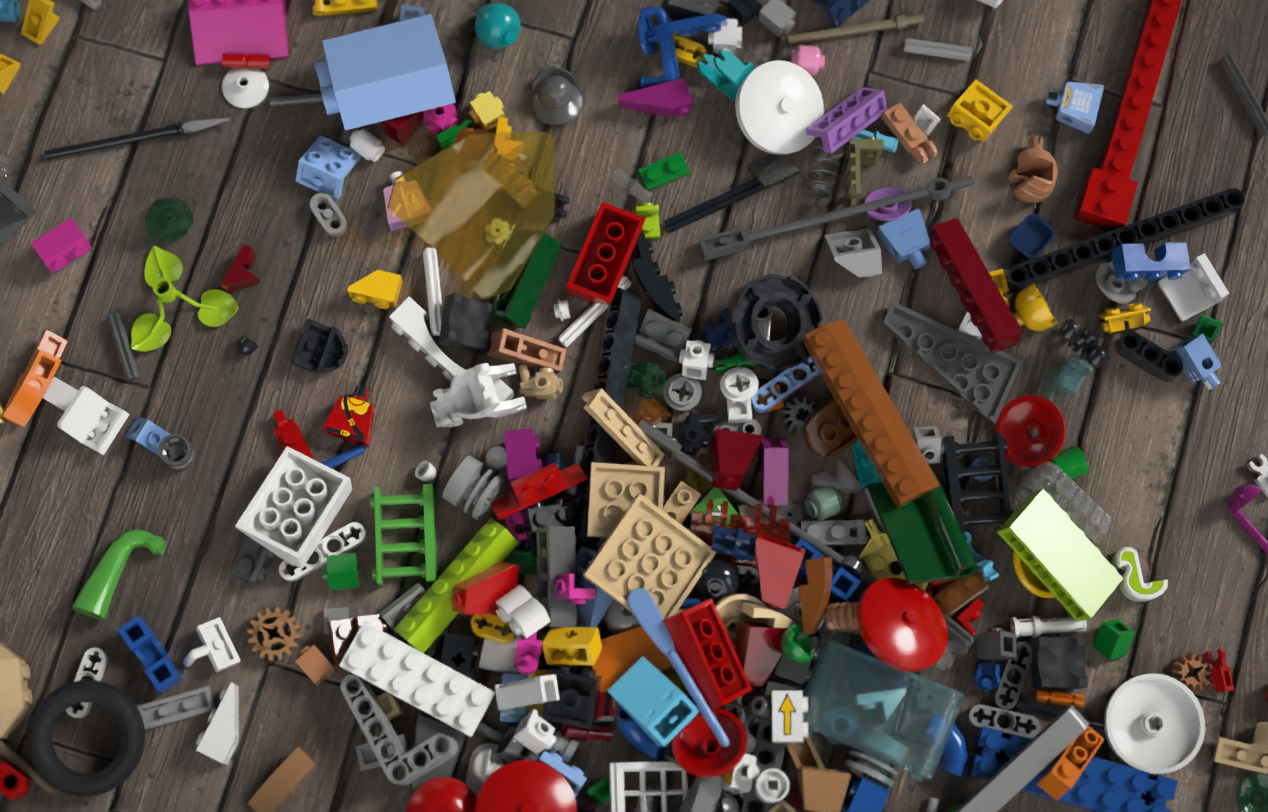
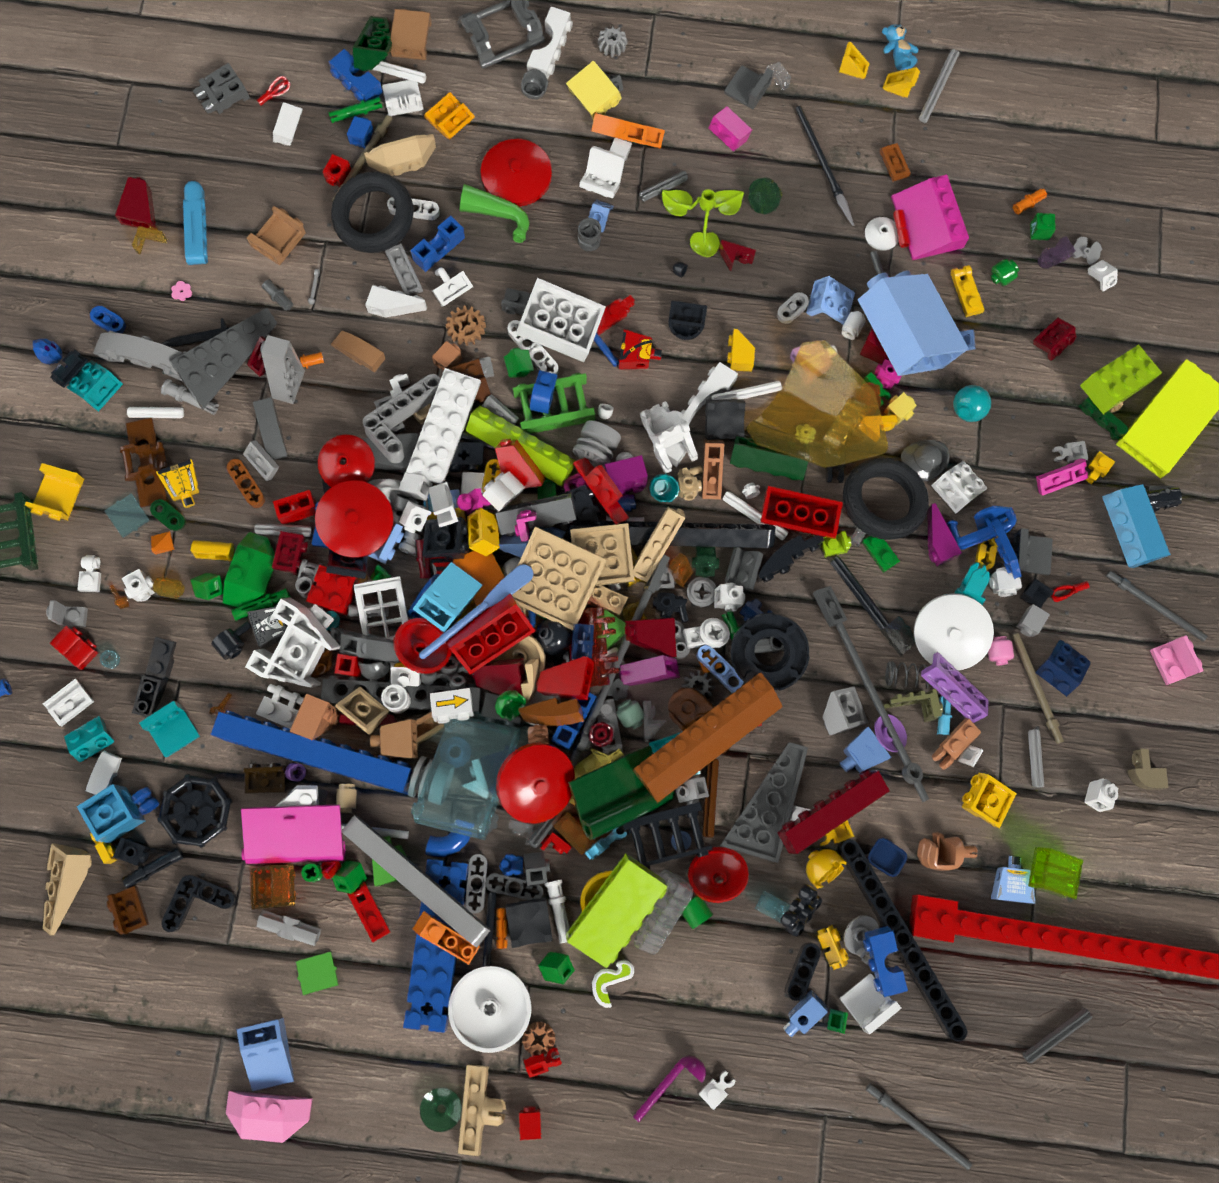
camera: 80 degrees right, 0 degrees up
(61, 536) = (516, 171): none -> red dish
(151, 50) = (895, 162): none -> dark orange plate
(352, 737) = (397, 382): none -> white bracket
(391, 543) = (543, 392): none -> blue brick
(491, 728) = (415, 486): none -> white brick
(543, 414) = (664, 488): none -> teal hair
(598, 63) = (959, 486): none -> white bracket
(619, 184) = (904, 476): none -> black tyre
(853, 537) = (594, 734): none -> dark red plate
(945, 428) = (710, 801): none -> reddish brown axle
(1073, 56) = (1055, 873): none -> clear neon green brick

